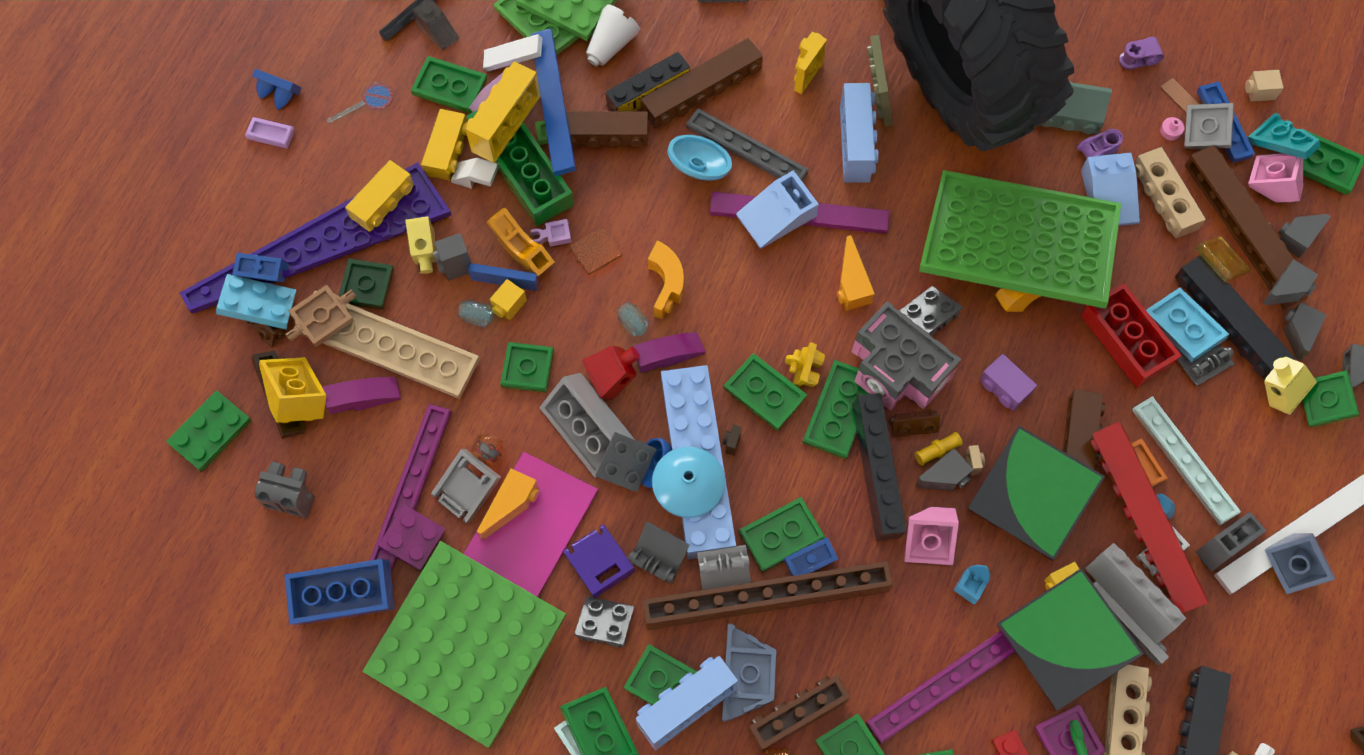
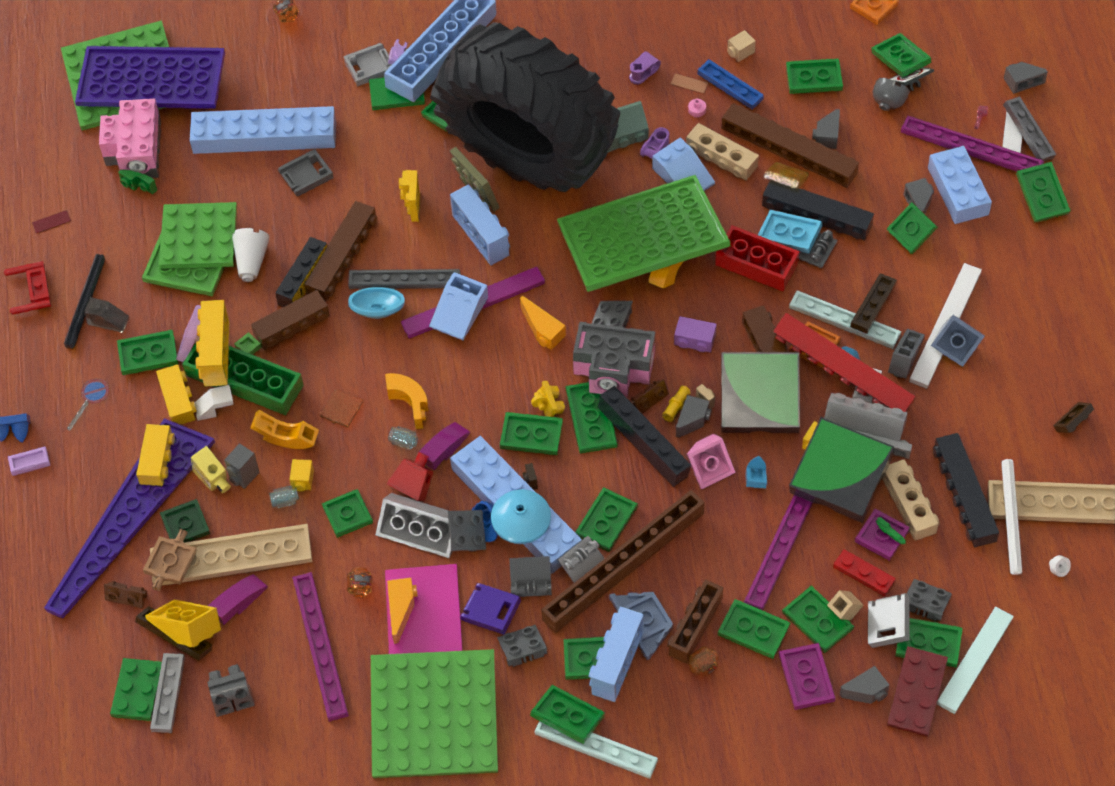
camera: 30 degrees left, 10 degrees down
(231, 453) = (167, 693): none -> light grey plate
(256, 301) = (112, 578): medium azure plate -> none
(259, 267) = (98, 552): blue hinge -> none
(339, 592) = (320, 731): blue brick -> none
(411, 537) = (345, 670): magenta plate -> none
(464, 488) = (360, 617): light grey container -> none
(498, 276) = (284, 462): blue tile -> none
(513, 51) = (183, 303): white tile -> none
(554, 106) = (243, 320): blue tile -> none
(555, 233) = (304, 410): lavender plate -> none
(811, 558) = (637, 520): blue plate -> none
(1209, 126) = (721, 92): light grey plate -> none
(1229, 462) = (873, 303): none -> dark brown plate
(1278, 177) = (789, 101): bright pink slope -> none
(1284, 138) = (776, 73): teal wing -> none
(1288, 384) = (880, 232): light yellow torso -> none
(1292, 284) = (842, 166): dark grey slope -> none
(1302, 328) = (867, 192): dark grey slope -> none

